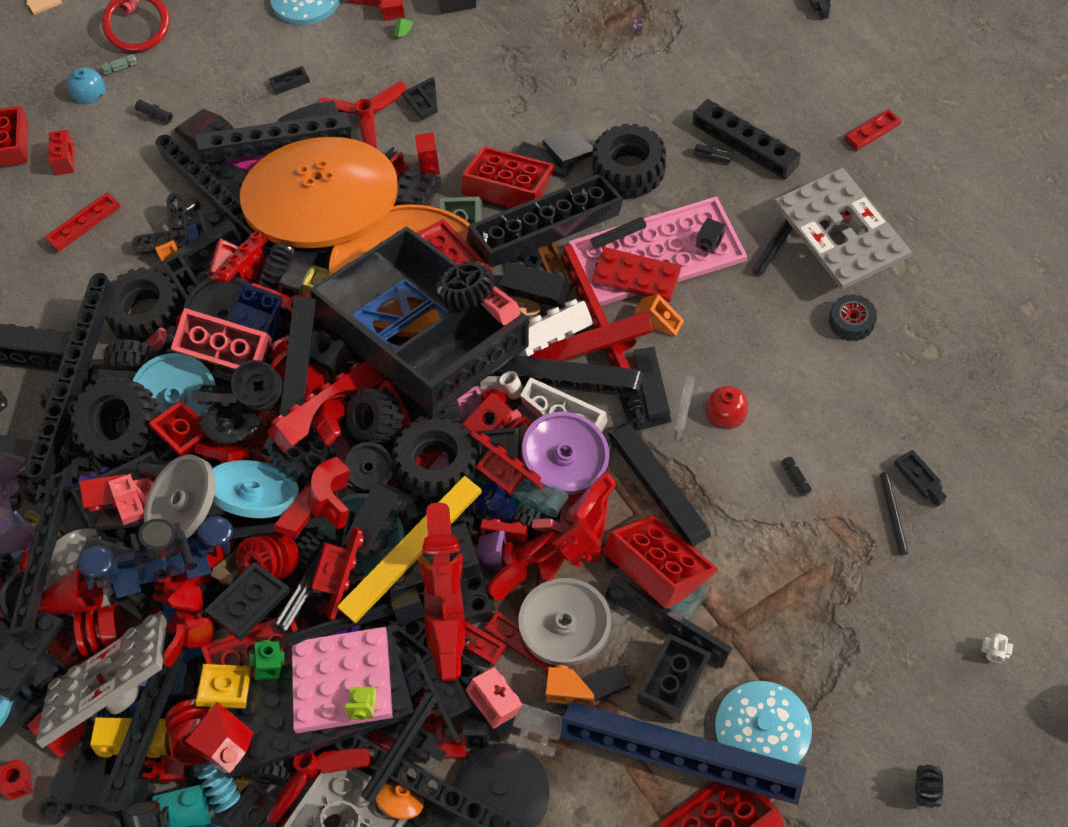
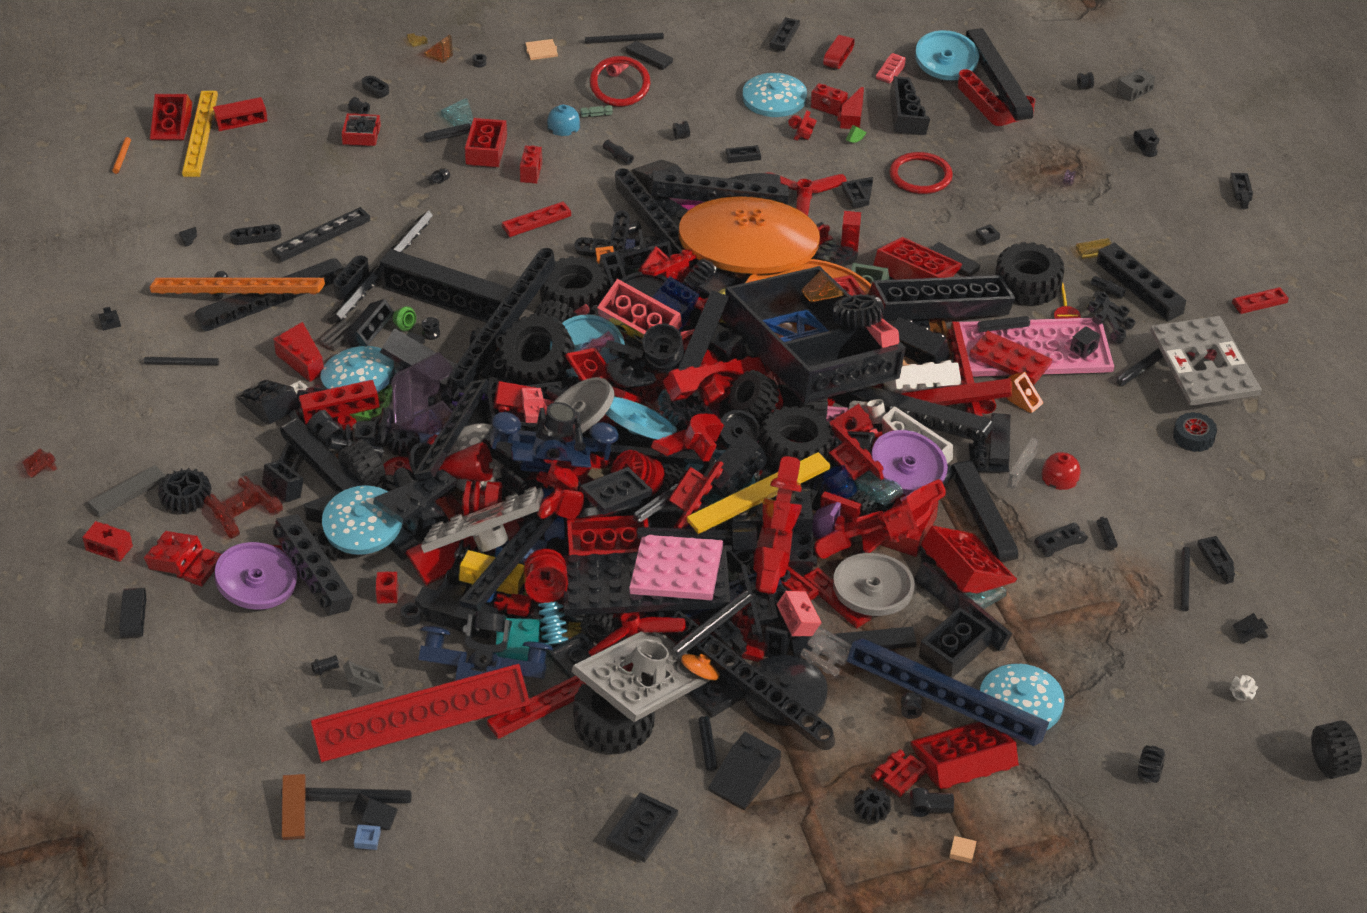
camera: 10 degrees right, 15 degrees down
(183, 390) = (600, 342): none -> clear pink pin
(215, 66) = (681, 130): none -> black wheel
(220, 738) = (568, 577): red slope -> none
(223, 684) = (579, 548): yellow tile -> none
(266, 660) = (619, 539): green brick -> none
(336, 27) = (803, 126): none -> red hips
(361, 703) = (690, 578): lime bracket -> none
(416, 260) = (821, 288): none -> clear orange slope
(482, 79) = (915, 188): none -> red wedge
(547, 525) = (873, 507): coral tile -> none
(567, 686) = (861, 625): orange slope -> none
(568, 147) = (977, 253): tile -> none
(571, 118) = (987, 234): none -> black plate
(646, 777) = (911, 705): none -> black wheel
(679, 196) = (1065, 311): none -> red piece
(684, 108) = (1091, 248): none -> clear yellow tile
(710, 173) = (1101, 300): none -> black plant
(749, 498) = (1060, 539): none -> black plate
(981, 562) = (1250, 628): none -> black bracket

